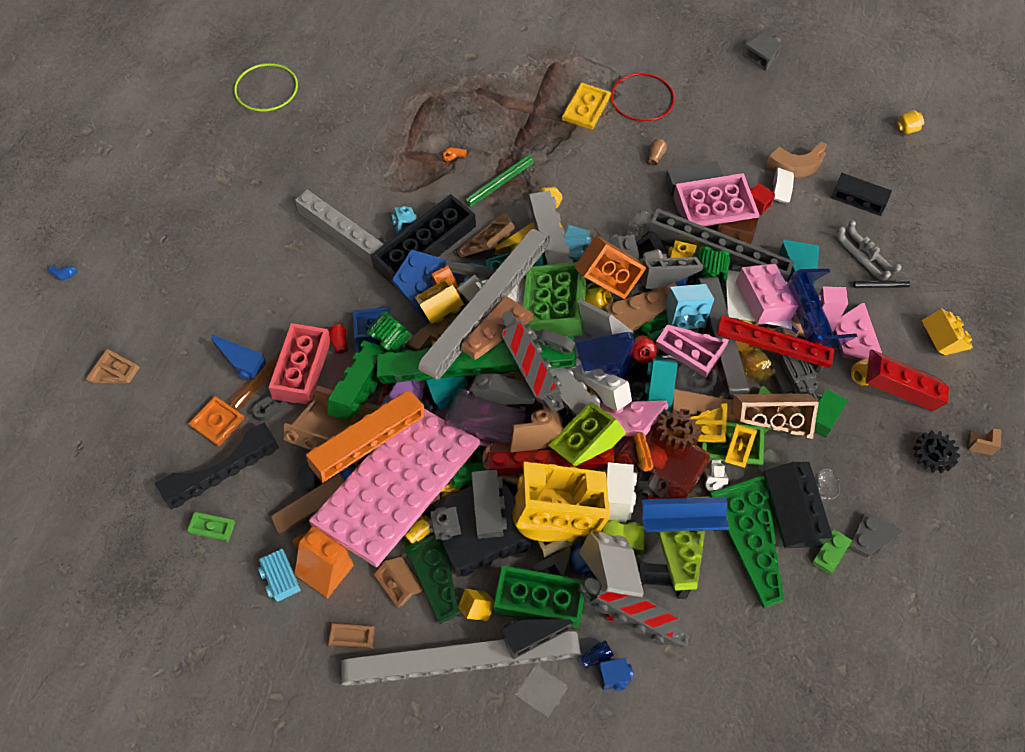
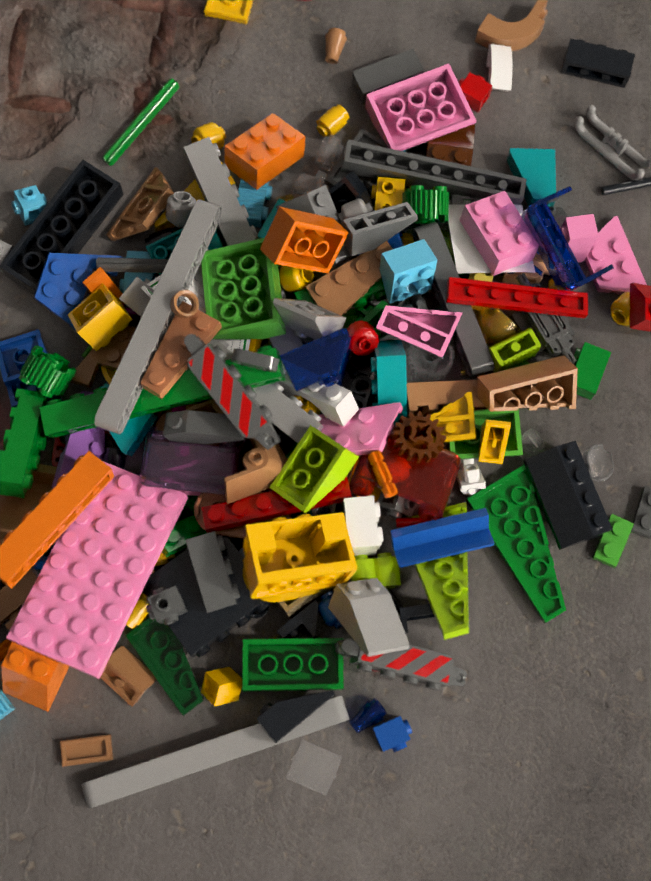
camera: 15 degrees left, 15 degrees up
(452, 153) = (72, 91): orange arm -> none
(513, 290) = (194, 301): none -> medium nougat piece
(515, 235) = (179, 208): none -> light grey head
(590, 210) = (264, 151): none -> orange brick
(646, 201) = (332, 121): none -> yellow brick
(768, 382) = (514, 350): none -> lime brick

